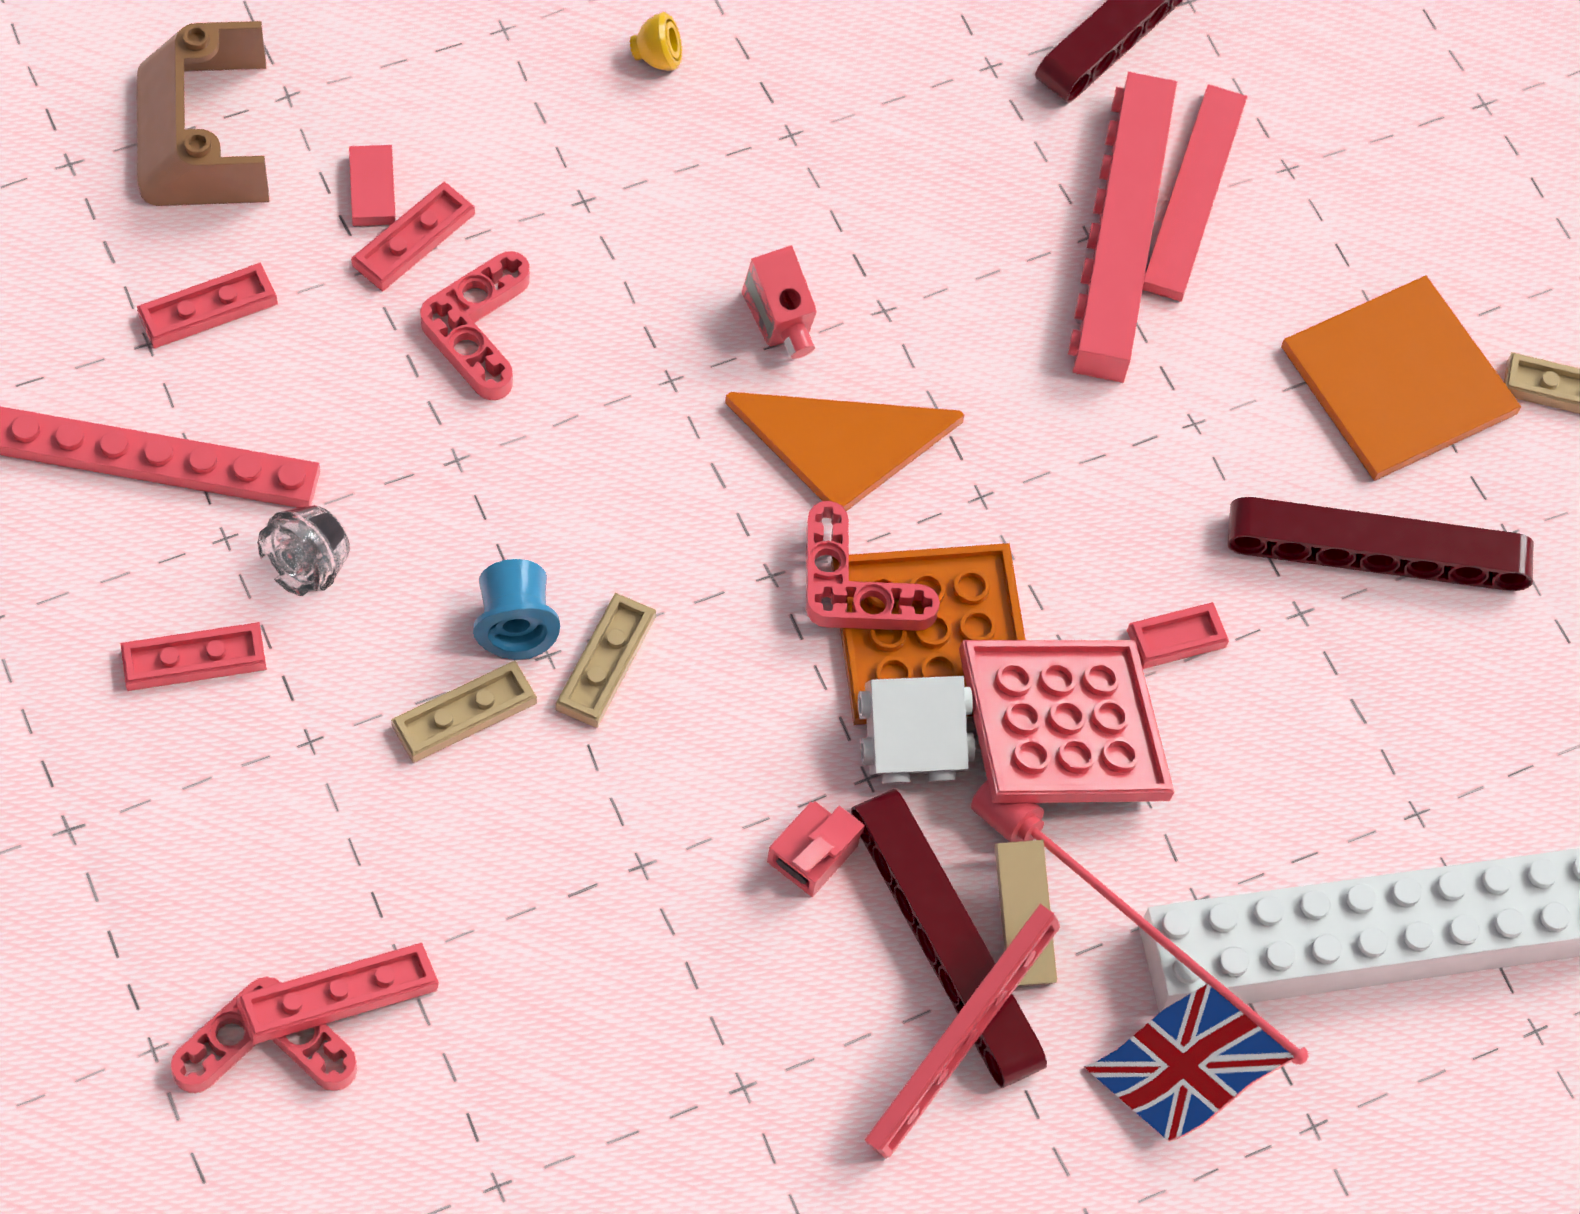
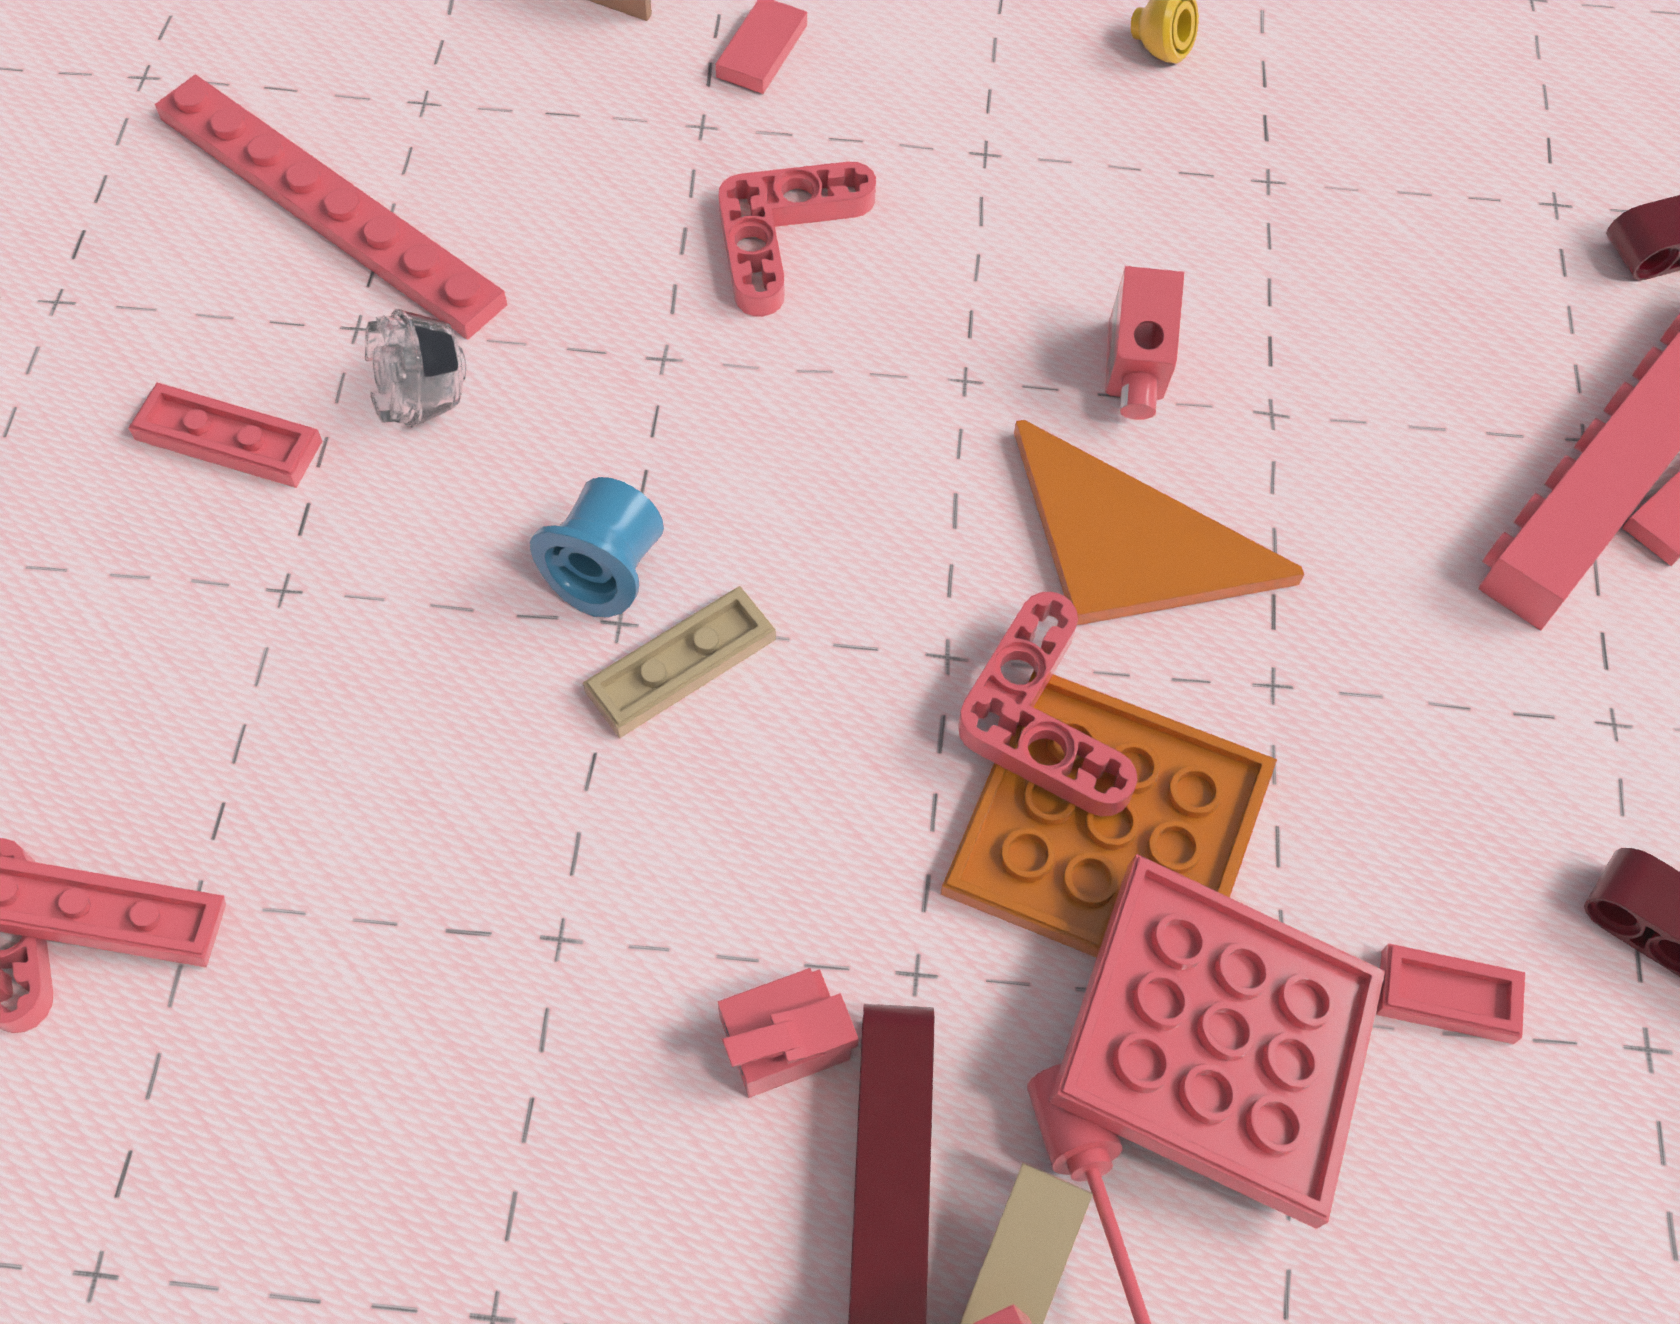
camera: 35 degrees right, 0 degrees up
(207, 305) = (508, 89): coral tile -> none
(413, 236) = (772, 111): coral tile -> none
(464, 711) = (474, 640): tan tile -> none
(916, 728) = (1007, 942): white brick -> none

